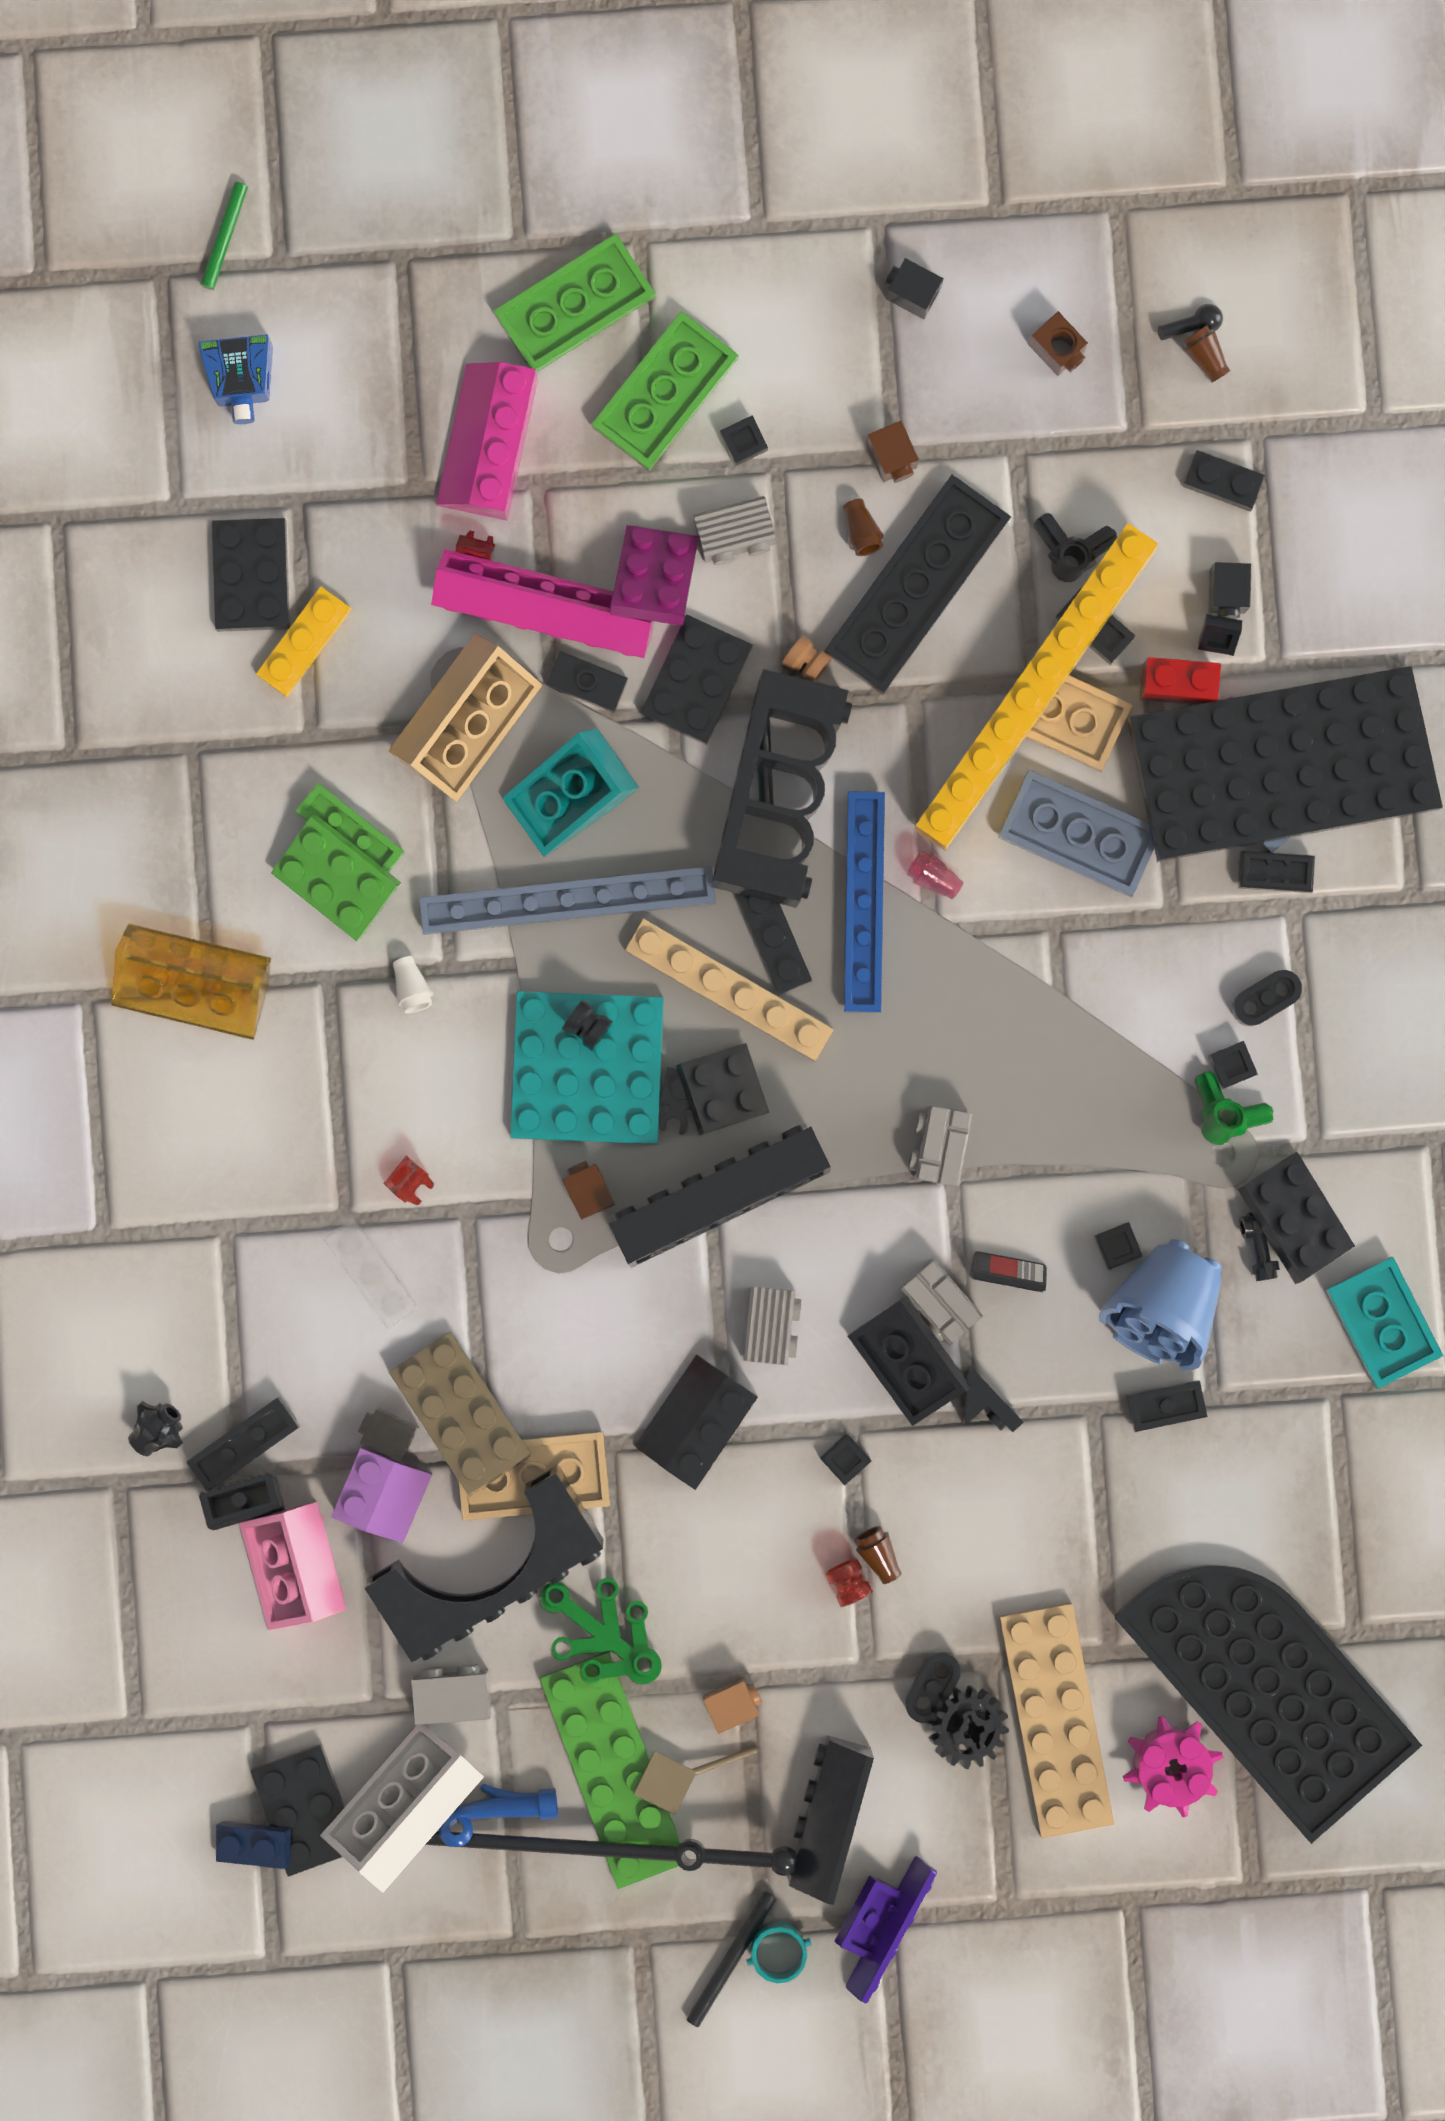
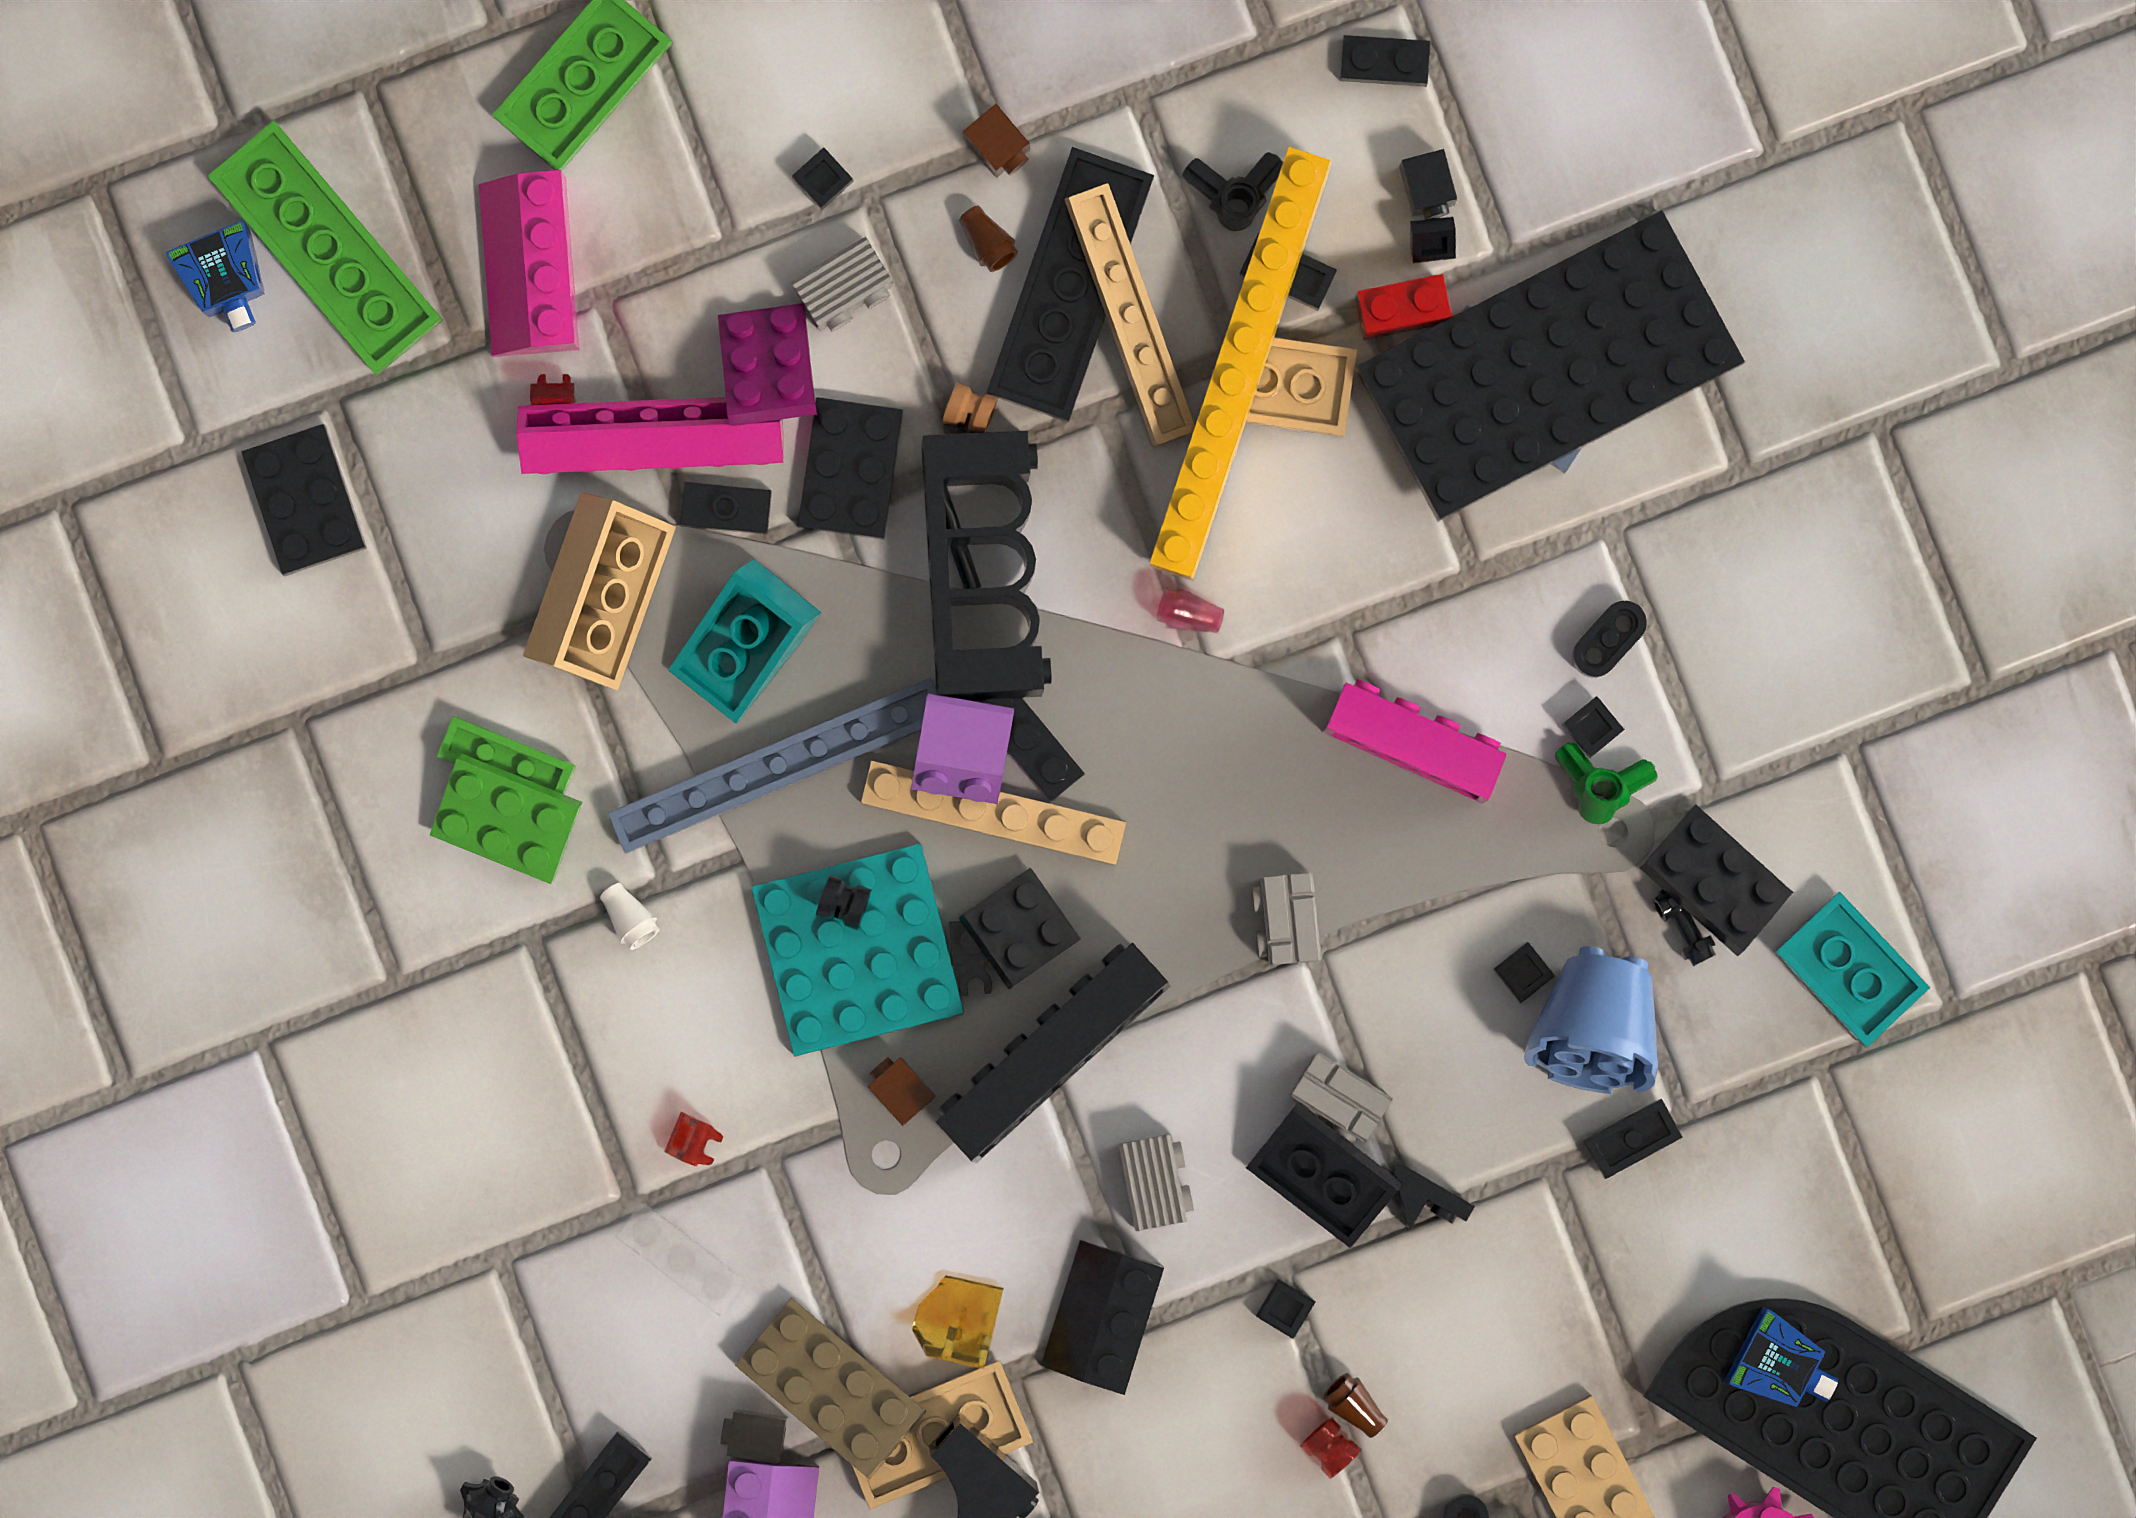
camera: 10 degrees left, 0 degrees up
(190, 981) = (374, 986): clear yellow slope -> none
(224, 235) = (156, 119): green bar -> none
(303, 641) = (387, 558): yellow plate -> none
(328, 377) = (325, 248): none -> bright green plate
(579, 1390) = (958, 1321): none -> clear yellow slope
(665, 391) = (715, 148): bright green plate -> none
(720, 930) = (962, 748): none -> medium lavender slope
(864, 902) = (1117, 666): blue plate -> none
(959, 621) = (1130, 314): none -> tan plate
(1009, 1271) = (1408, 1039): slope -> none
(1079, 833) = (1339, 515): sand blue plate -> none
(1086, 1034) = (1415, 742): none -> dark pink slope
(1233, 1622) = (1780, 1363): none -> torso
(1276, 872) = (1577, 491): black plate -> none

